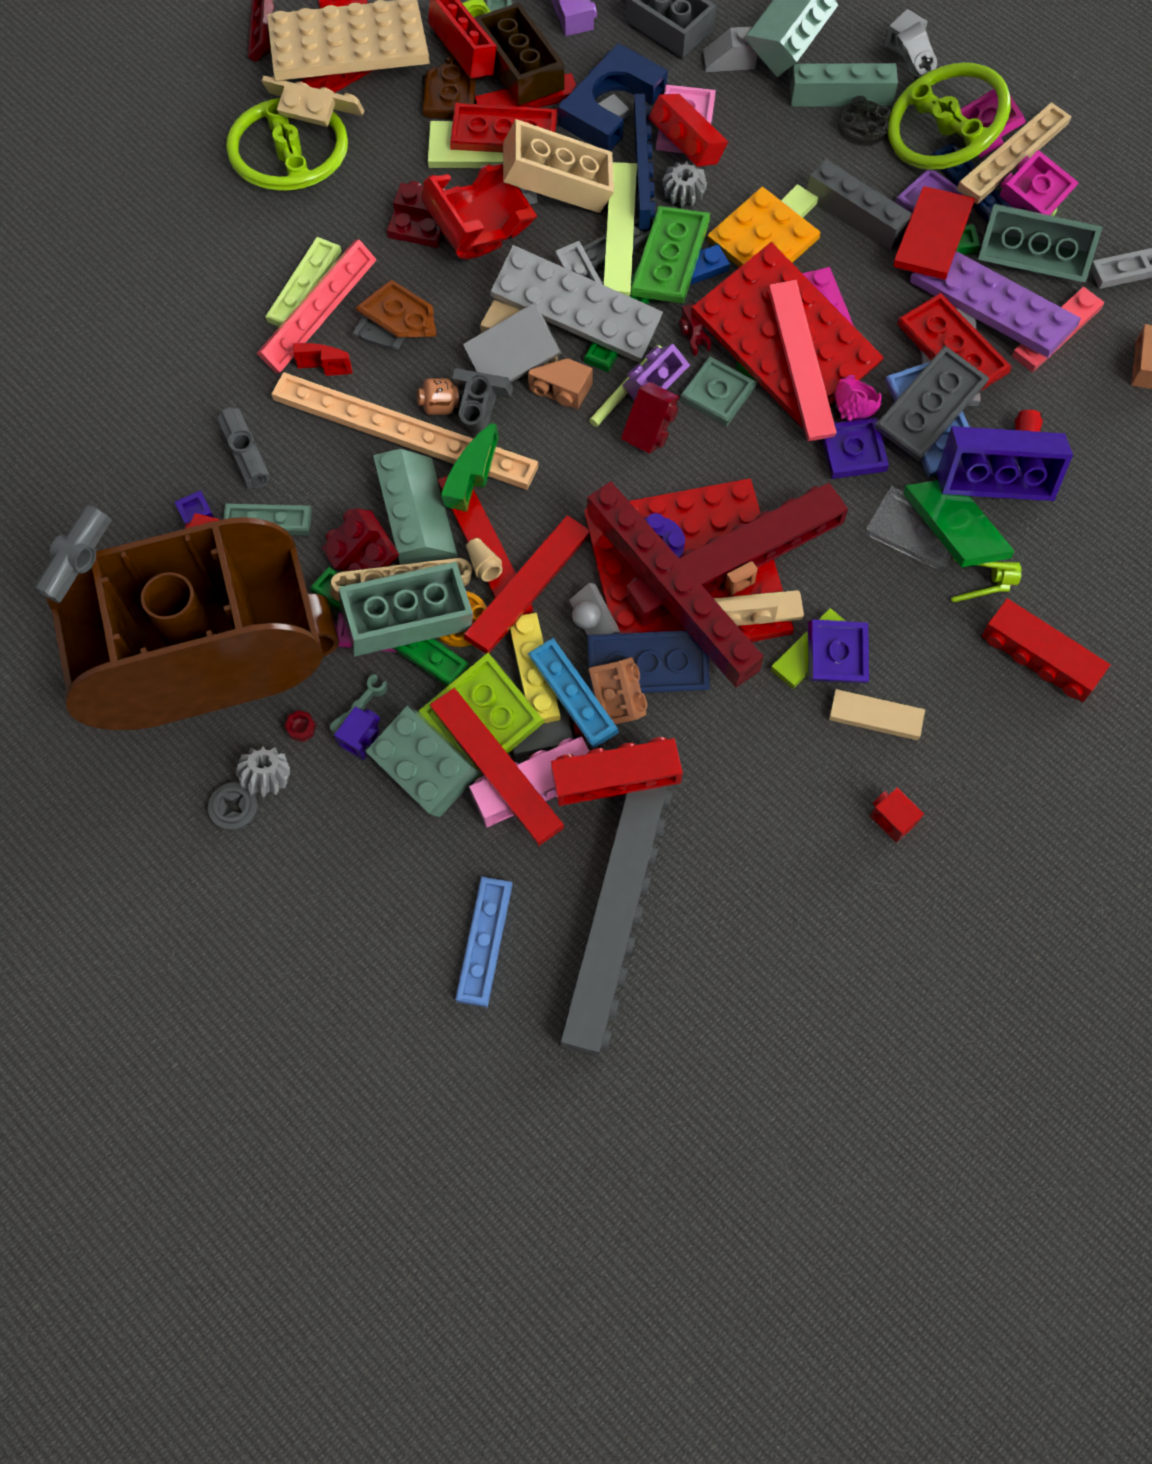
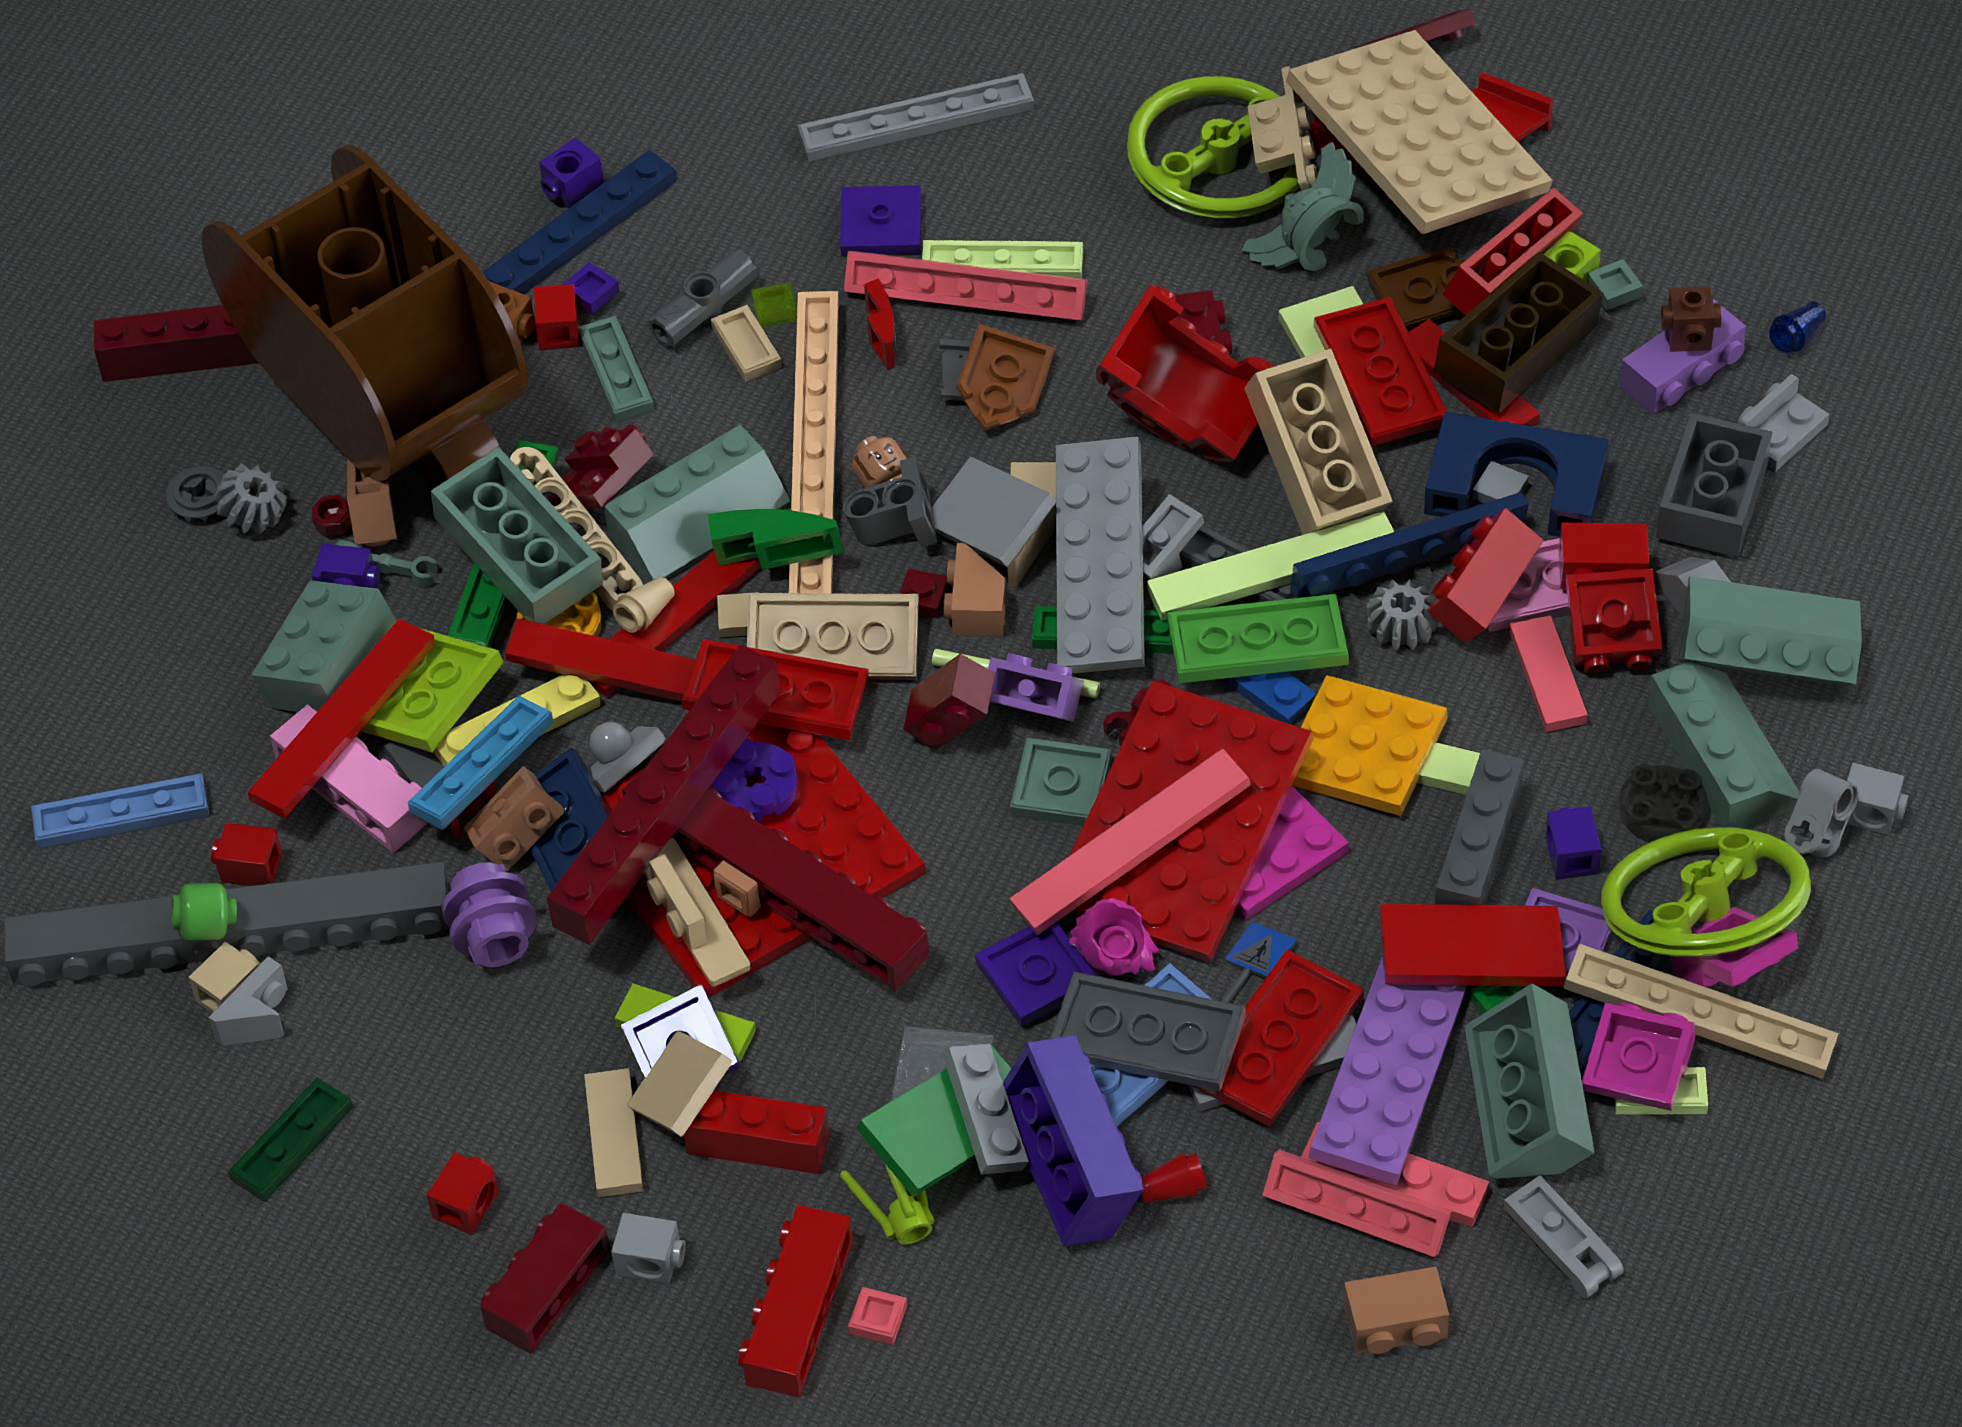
camera: 70 degrees right, 15 degrees down
(72, 553) = (356, 140): dark grey piece -> none
(85, 479) = (571, 173): none -> dark purple brick
(89, 783) = (168, 343): none -> dark red brick
(128, 486) = (582, 223): none -> dark blue plate
(159, 289) = (915, 117): none -> light grey tile
(233, 334) = (881, 220): none -> dark purple plate
(267, 414) = (774, 305): none -> clear neon green tile
(289, 440) = (746, 343): none -> tan tile
(314, 695) = (370, 508): none -> nougat slope
(378, 113) = (1310, 217): none -> sand green helmet
(508, 515) = (733, 614): none -> tan tile
(541, 412) = (930, 590): none -> dark red plate
(556, 468) = (840, 628): none -> tan tile
(567, 526) = (813, 696): none -> red tile
(568, 866) = (247, 854): none -> red brick
(616, 771) = (379, 839): red brick -> none
(627, 902) = (203, 911): none -> bright green head
(668, 910) = (221, 975): none -> tan brick
(696, 727) = (489, 914): none -> medium lavender piece
(698, 75) = (1601, 548): none -> red brick
(699, 906) = (248, 1010): none -> light grey slope
(742, 89) = (1613, 619): none -> red plate
(755, 137) = (1548, 673): none -> coral tile
(805, 910) = (290, 1139): none -> dark green tile
(877, 166) = (1573, 842): none -> dark purple brick
(881, 656) = (679, 1083): none -> tan tile
(884, 338) = (1256, 953): none -> piece
(915, 631) = (760, 1132): none -> red brick
(959, 500) = (985, 1109): none -> light grey plate
(977, 721) = (647, 1248): none -> light grey brick
(978, 786) = (544, 1277): none -> dark red brick
(1062, 614) = (877, 1315): none -> coral tile
(1077, 350) = (1357, 1203): none -> coral plate

